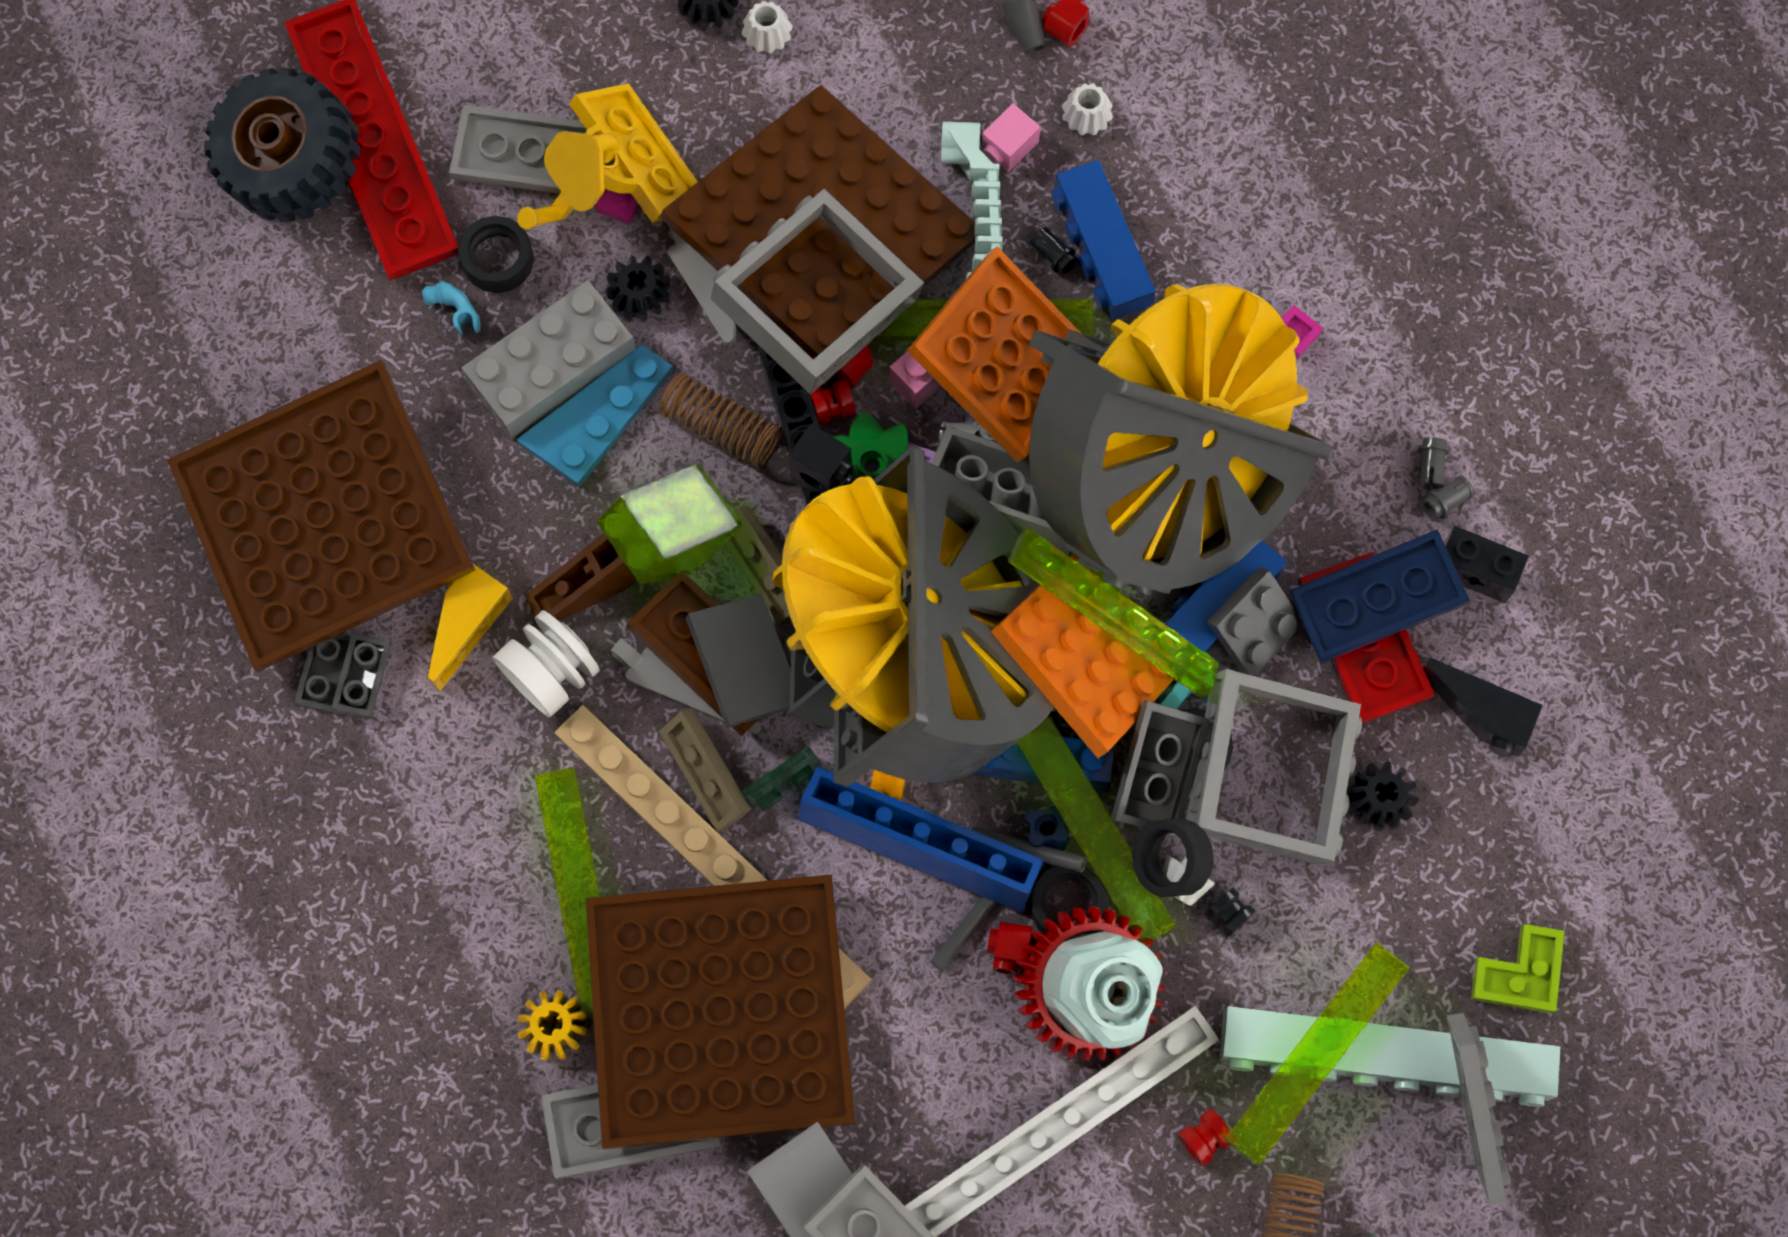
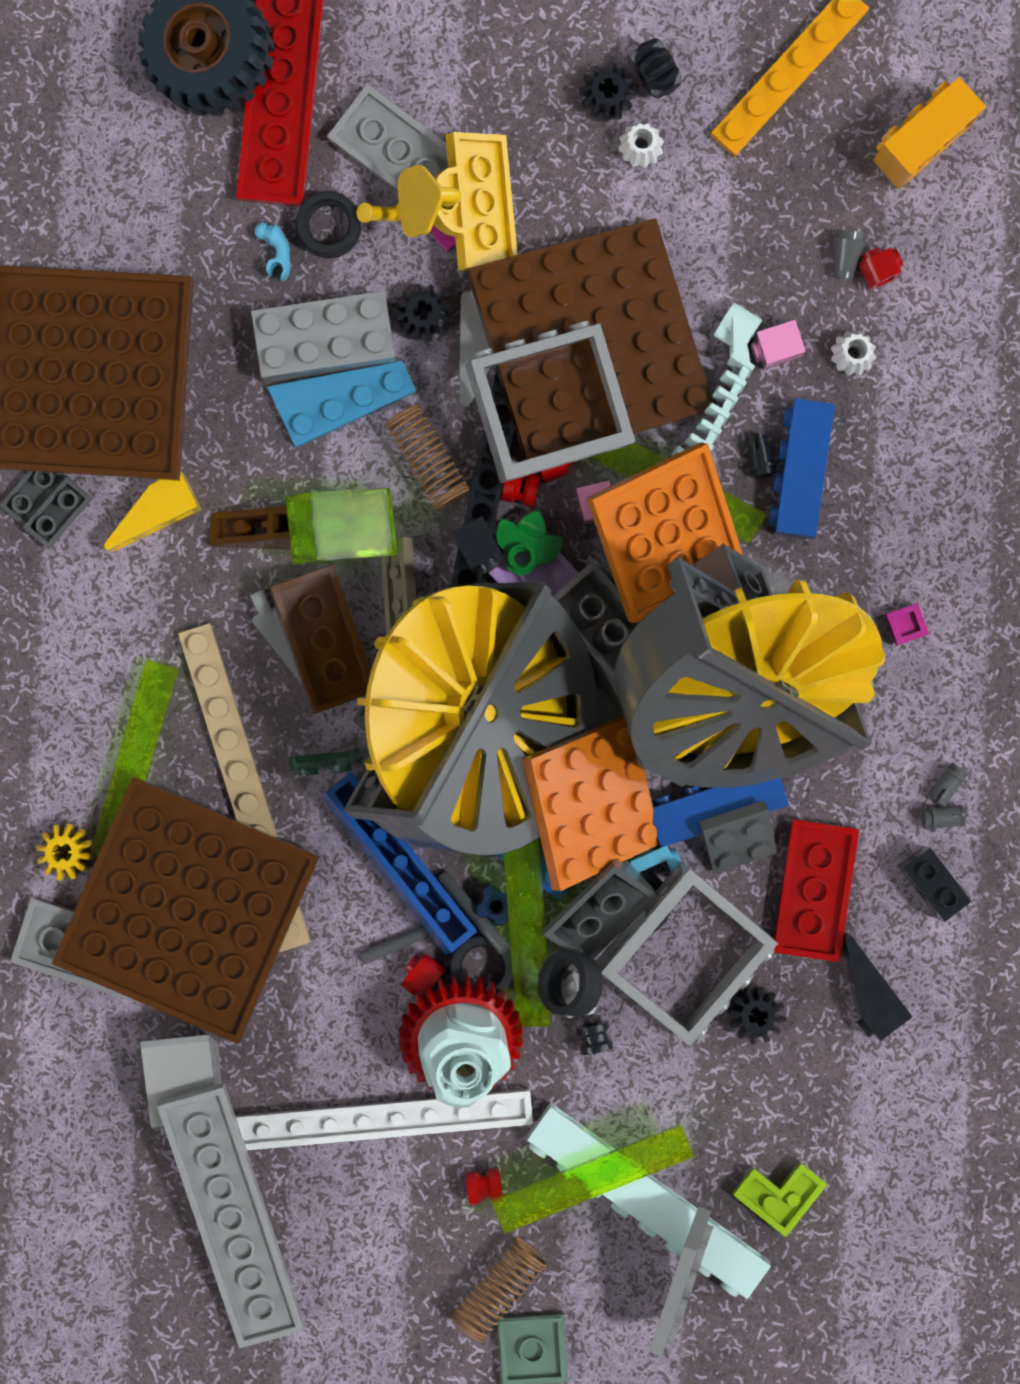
camera: 25 degrees right, 15 degrees up
(546, 663) = (195, 581): white wheel -> none
(704, 770) = (272, 722): dark tan plate -> none
(742, 659) = (340, 657): dark grey tile -> none
(1114, 612) = (629, 782): clear neon green plate -> none
(1379, 596) = (841, 870): dark blue tile -> none

